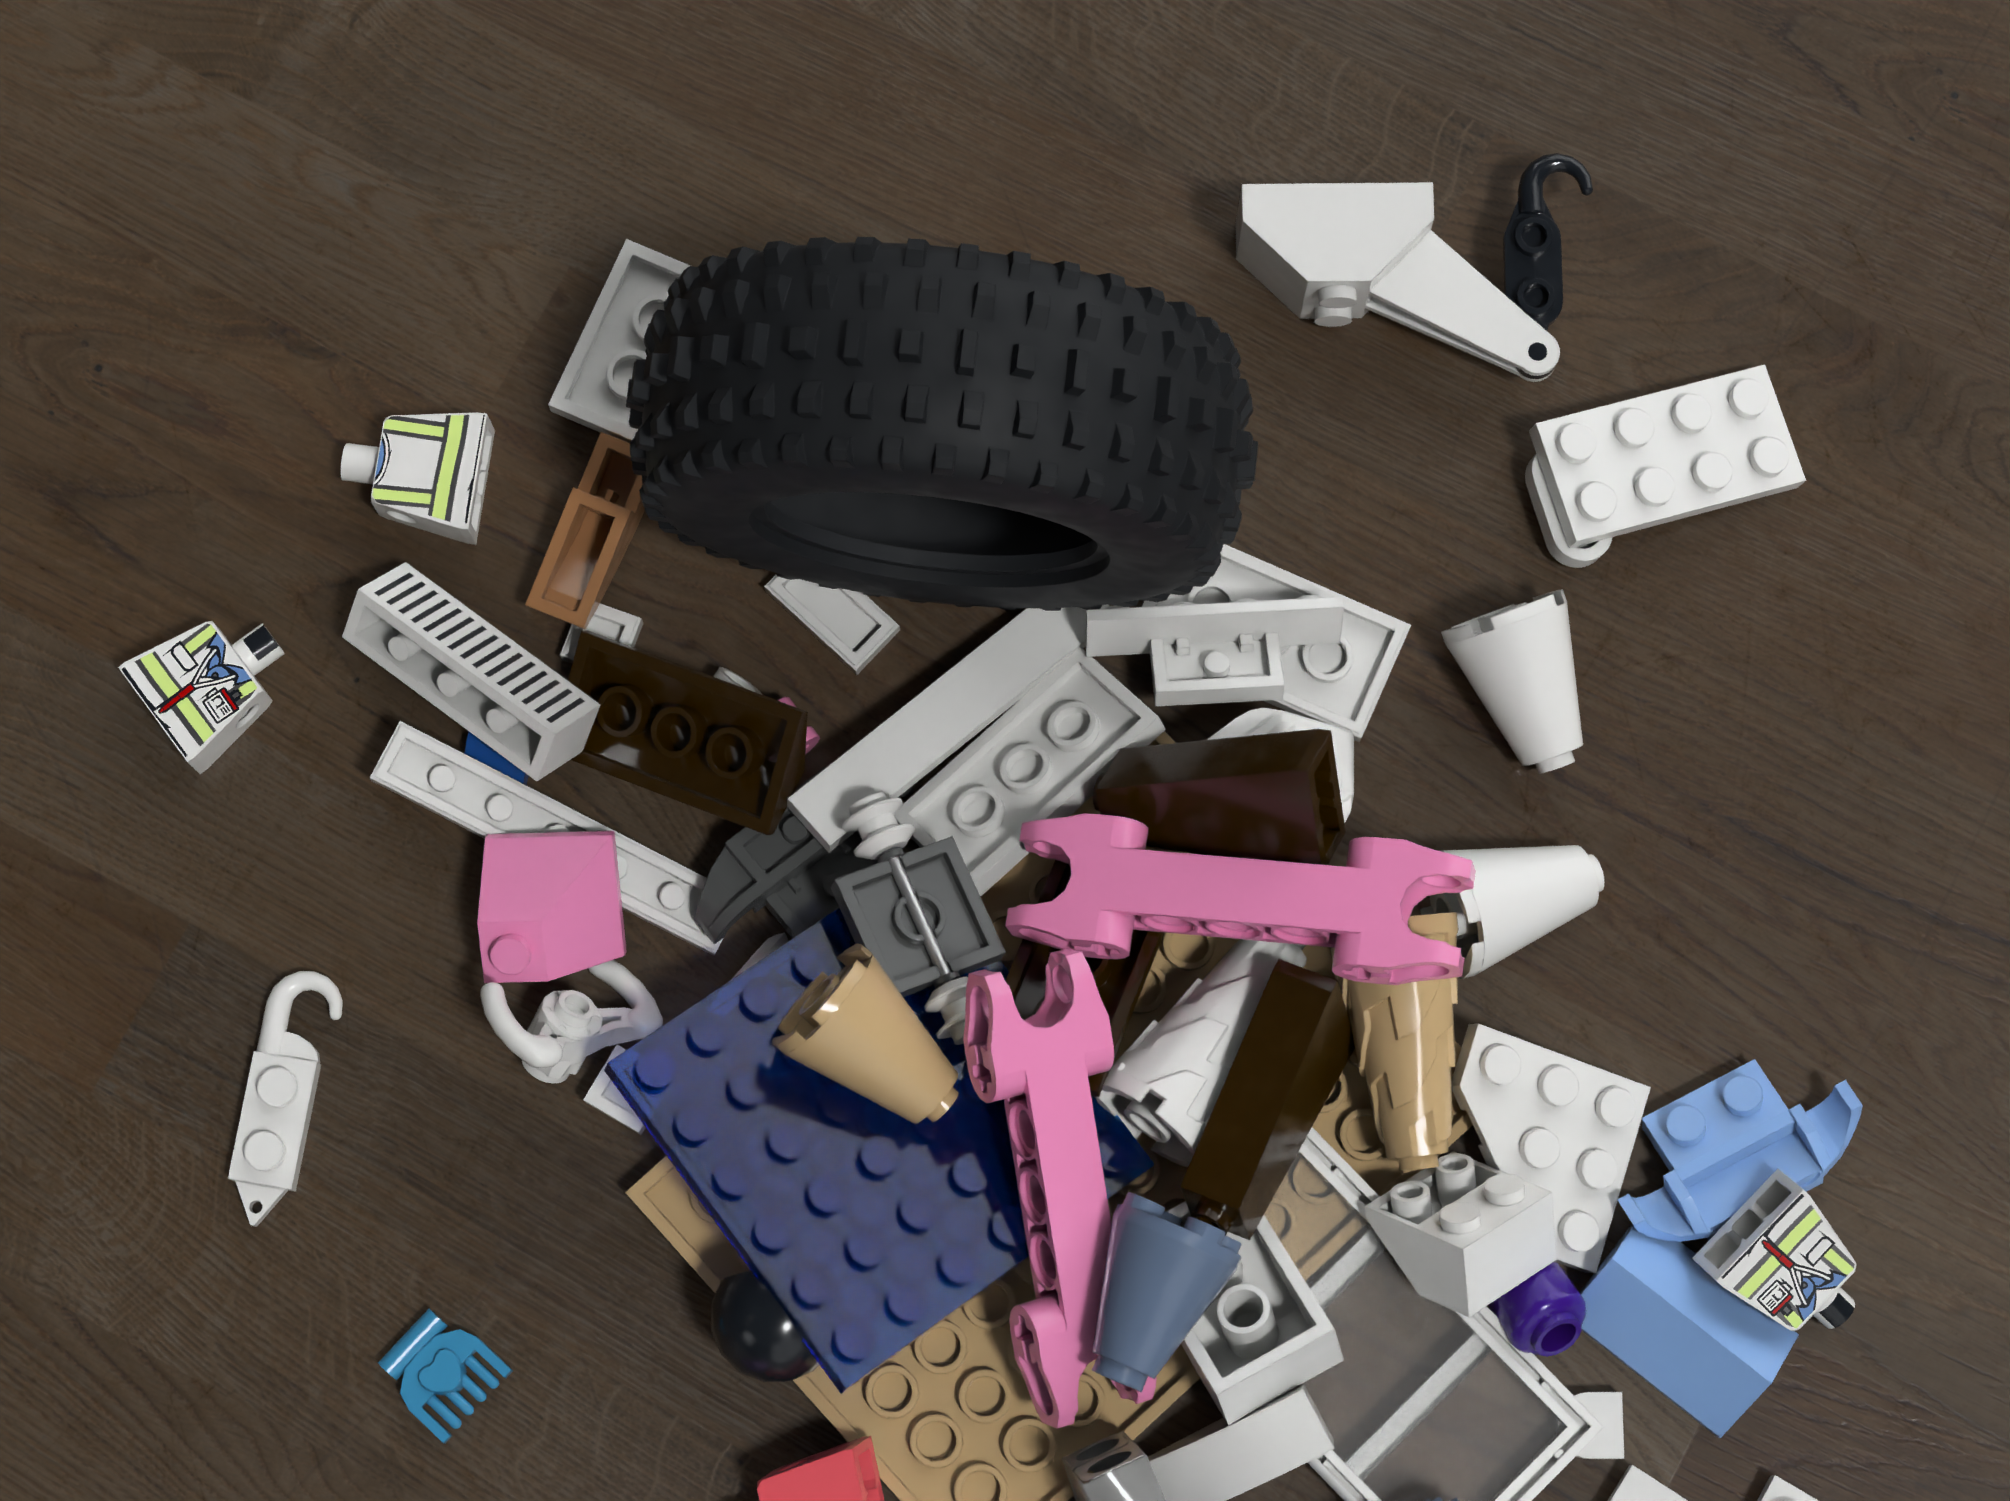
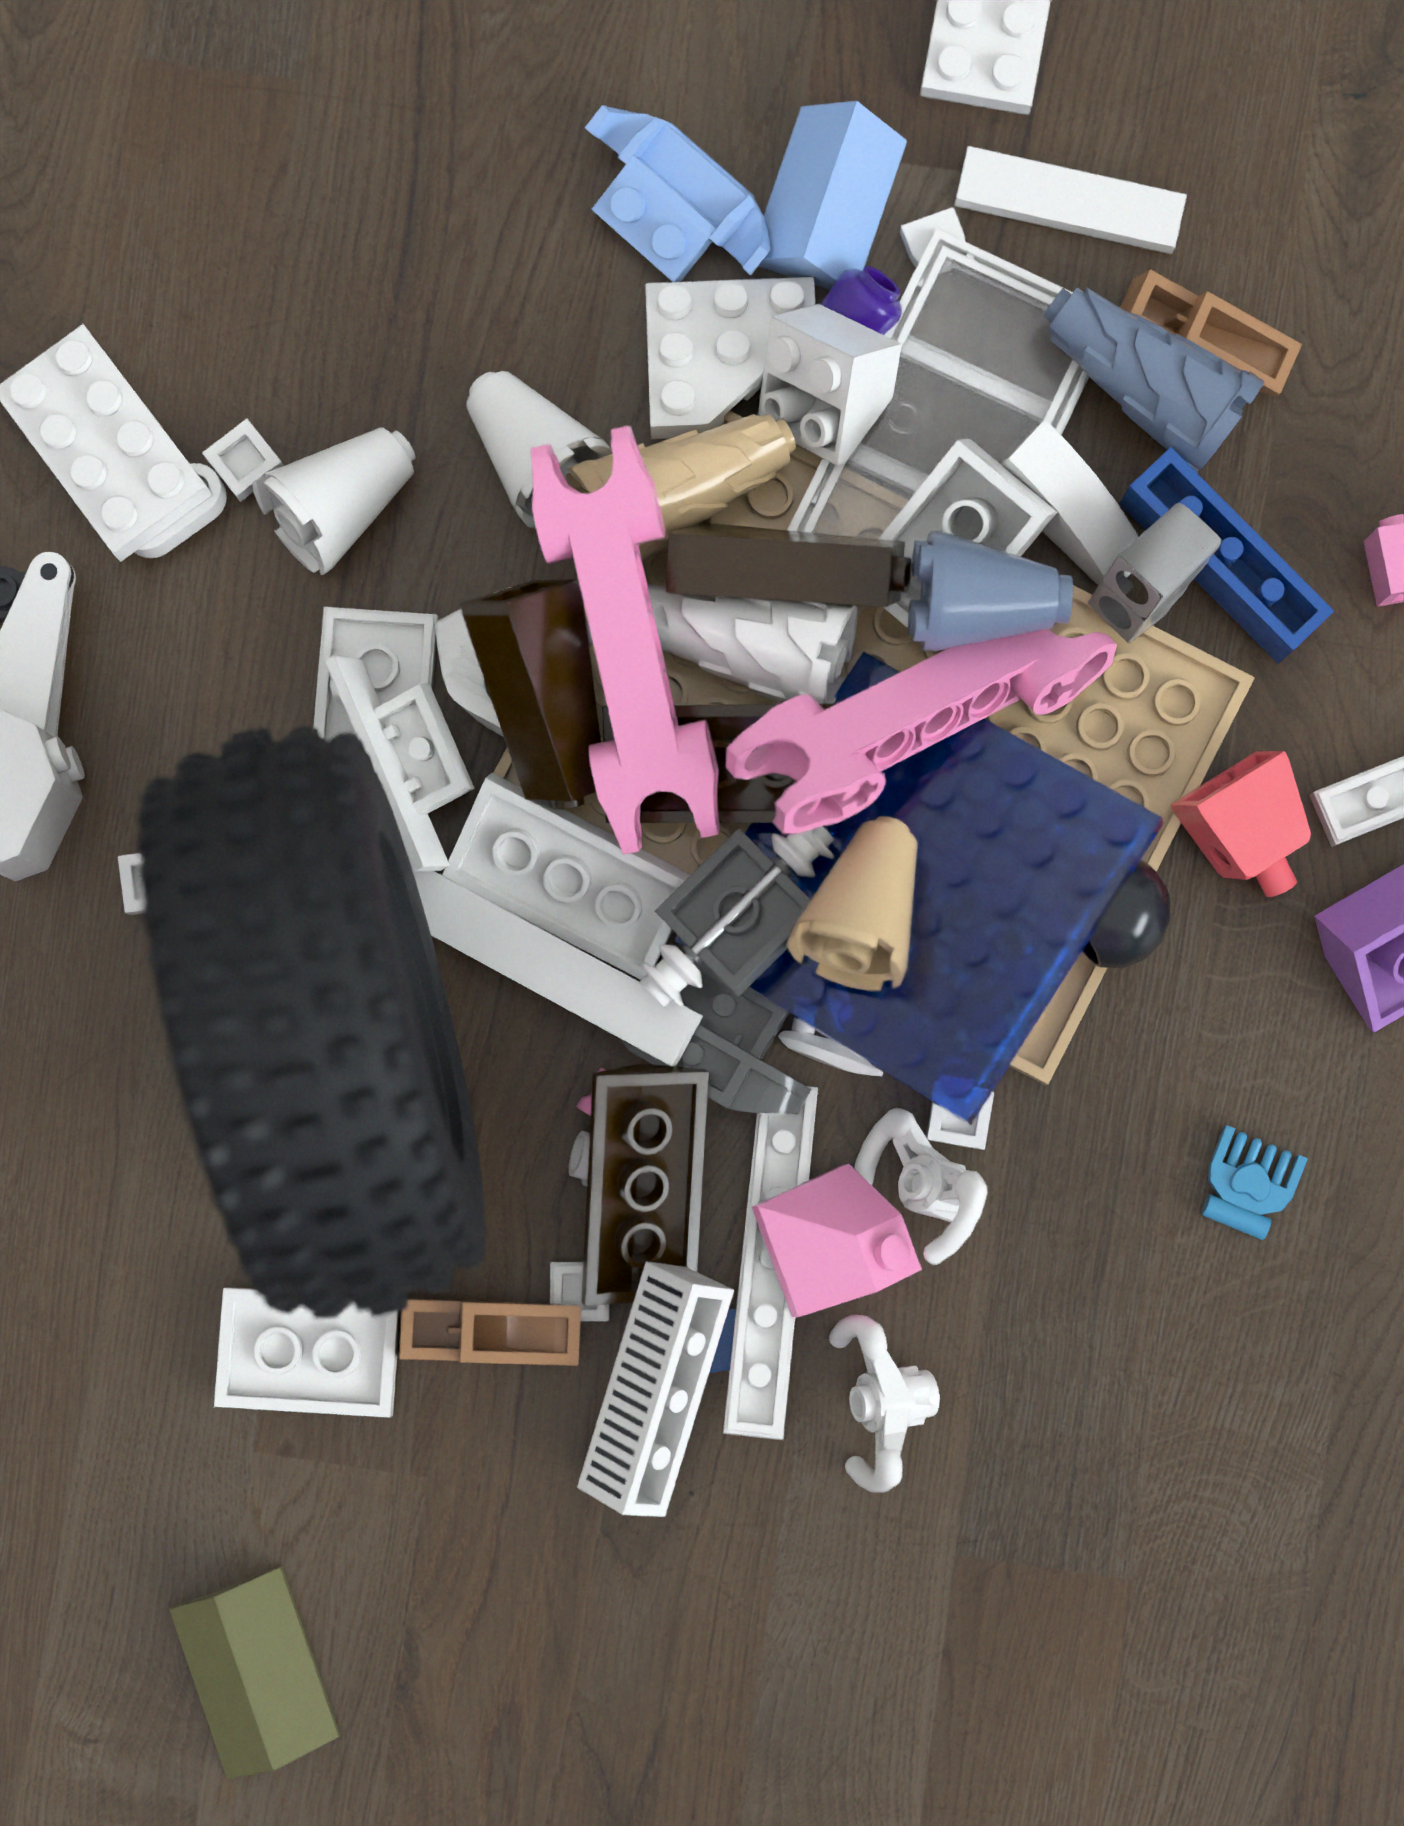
camera: 110 degrees left, 5 degrees up
(204, 688) = (751, 1623): torso -> none
(278, 1099) = (1076, 1413): white plate -> none
(352, 195) = (255, 1674): none -> olive slope
(367, 900) = (884, 1401): none -> white piece
(427, 471) = (487, 1503): white torso -> none
(839, 618) = (492, 1084): white tile -> none
(1599, 595) = (241, 458): none -> white plate
(1782, 1257) = (749, 130): torso -> none

